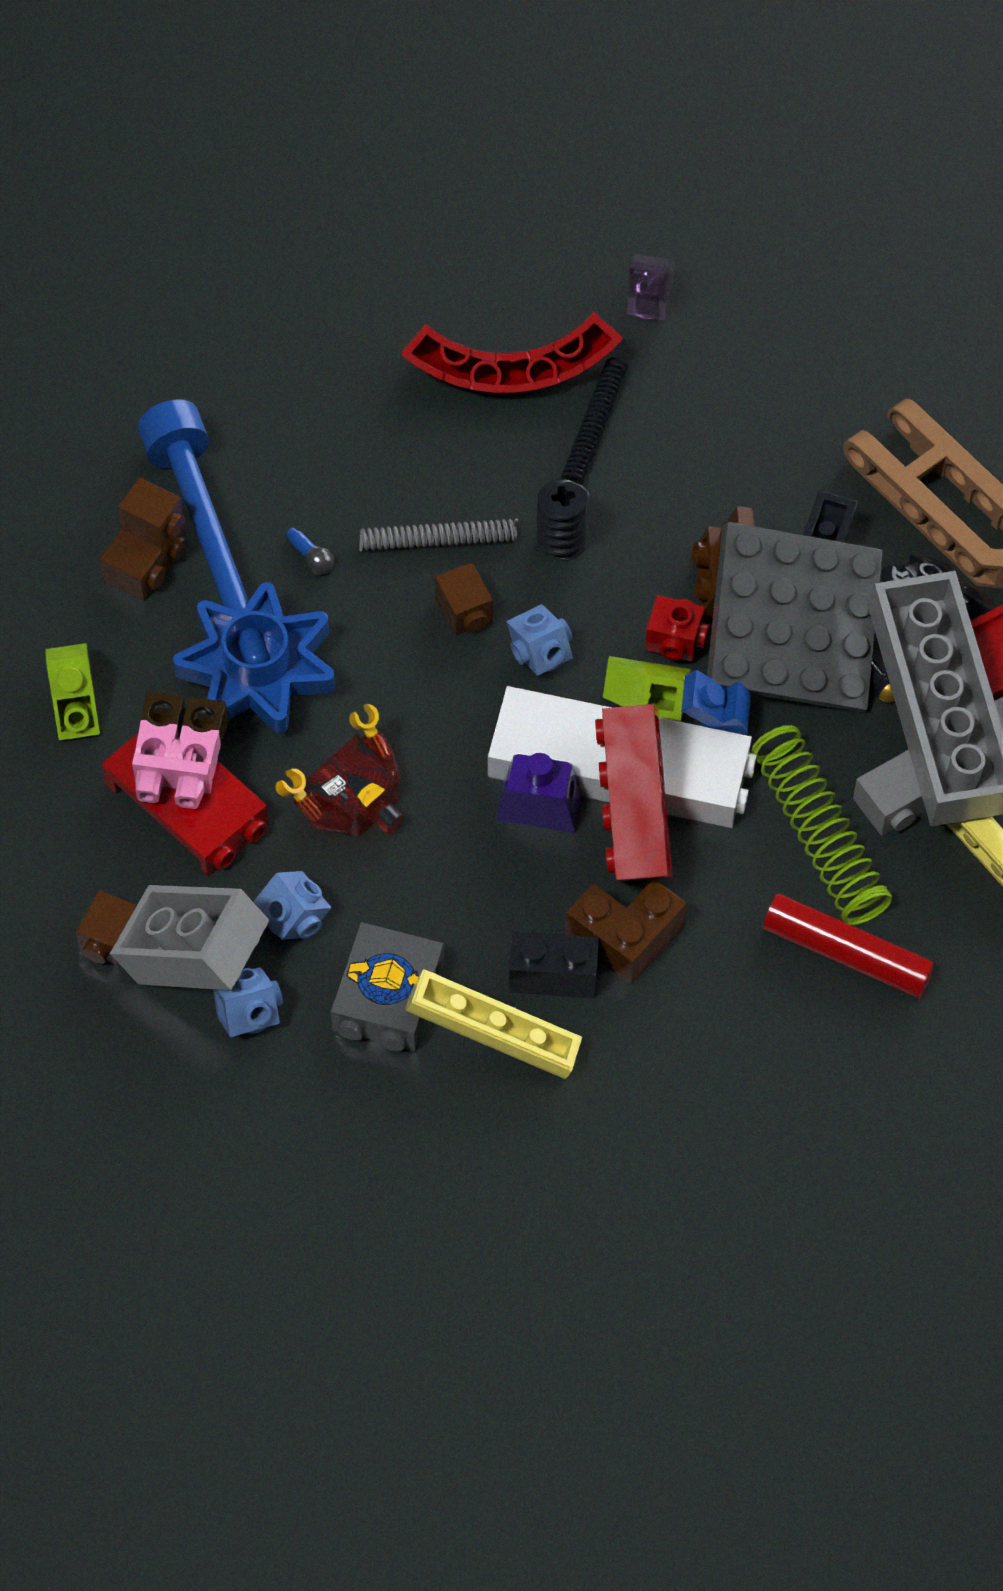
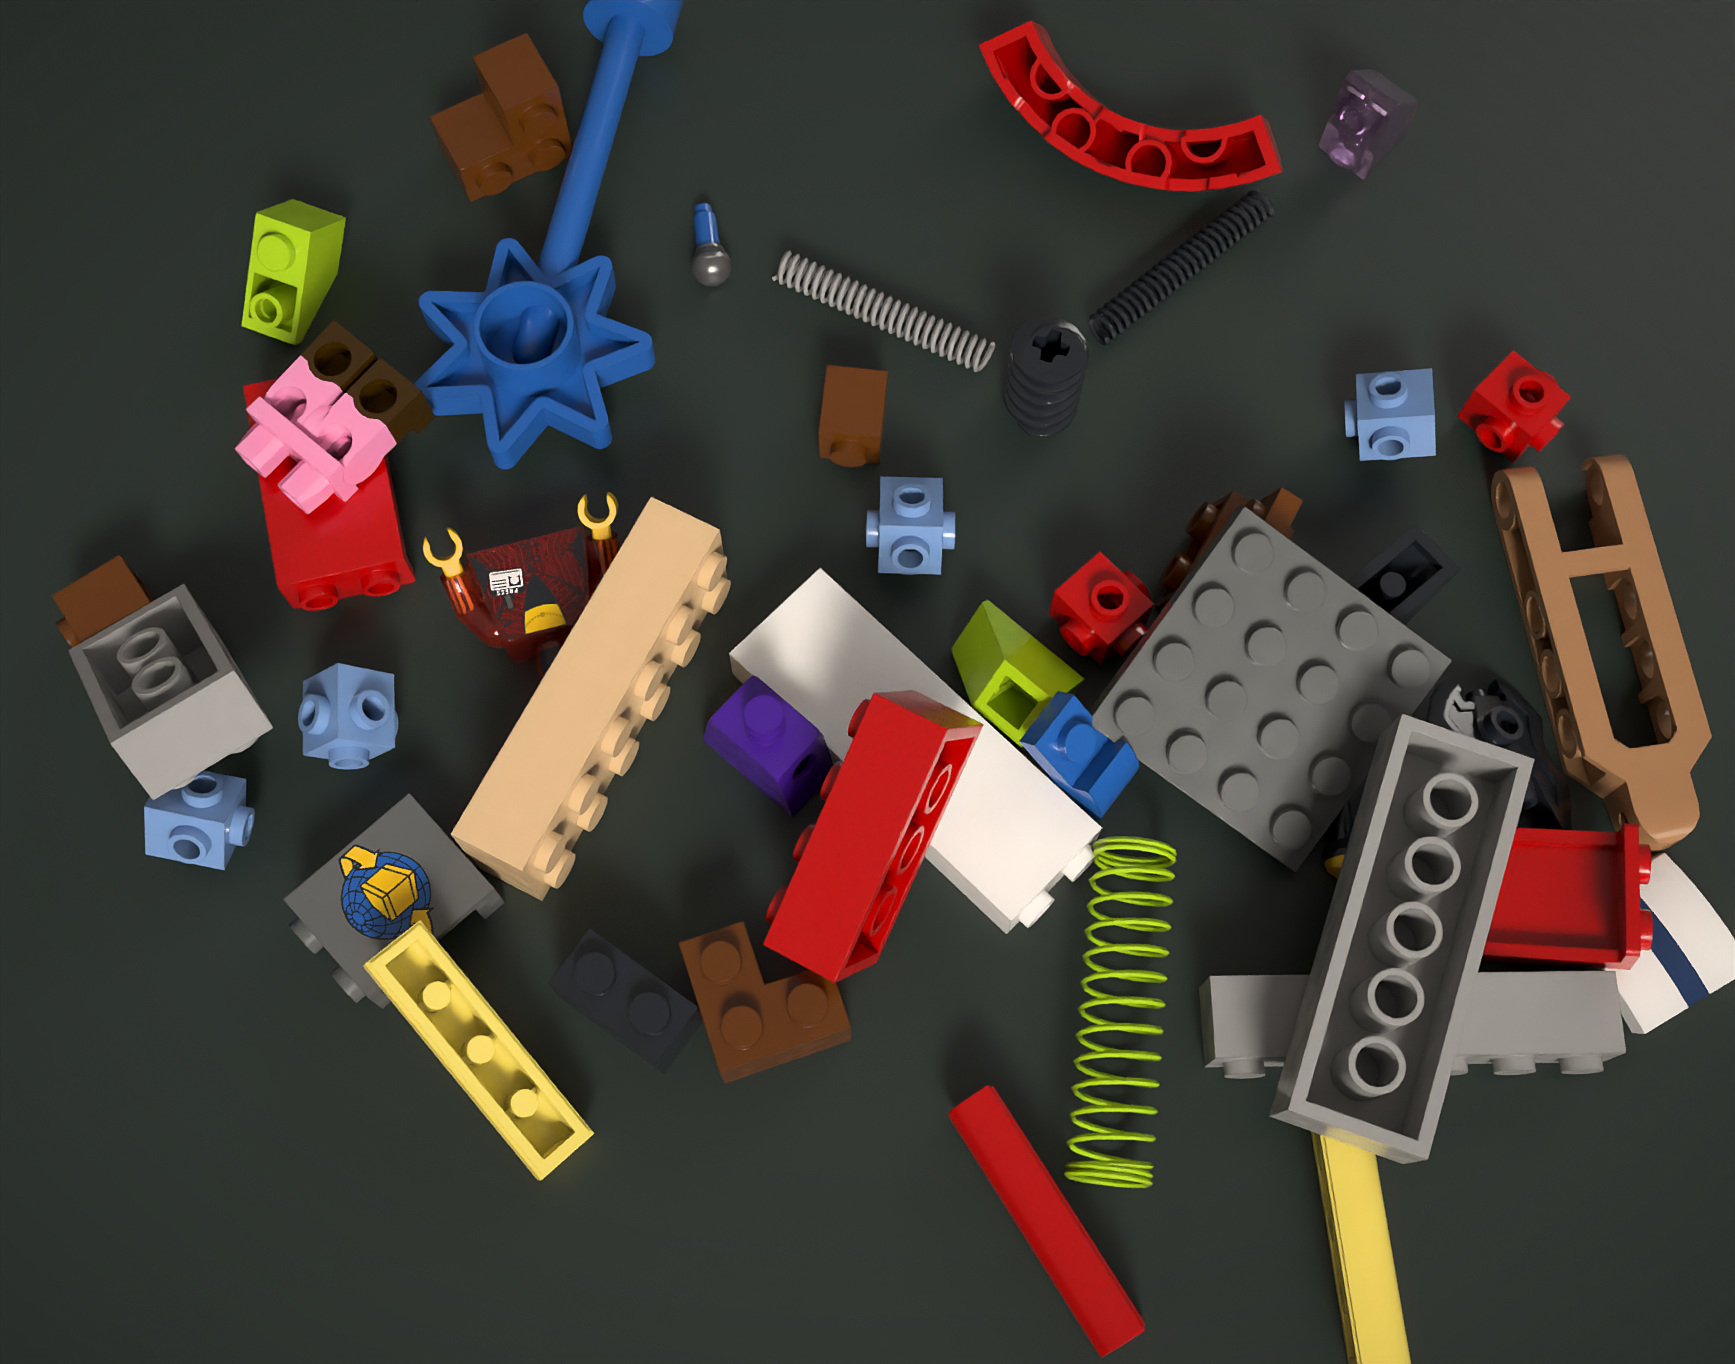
camera: 30 degrees right, 10 degrees up
(434, 816) = (595, 701): none -> tan brick
(768, 441) = (1393, 415): none -> medium blue brick
(832, 403) = (1515, 408): none -> red brick

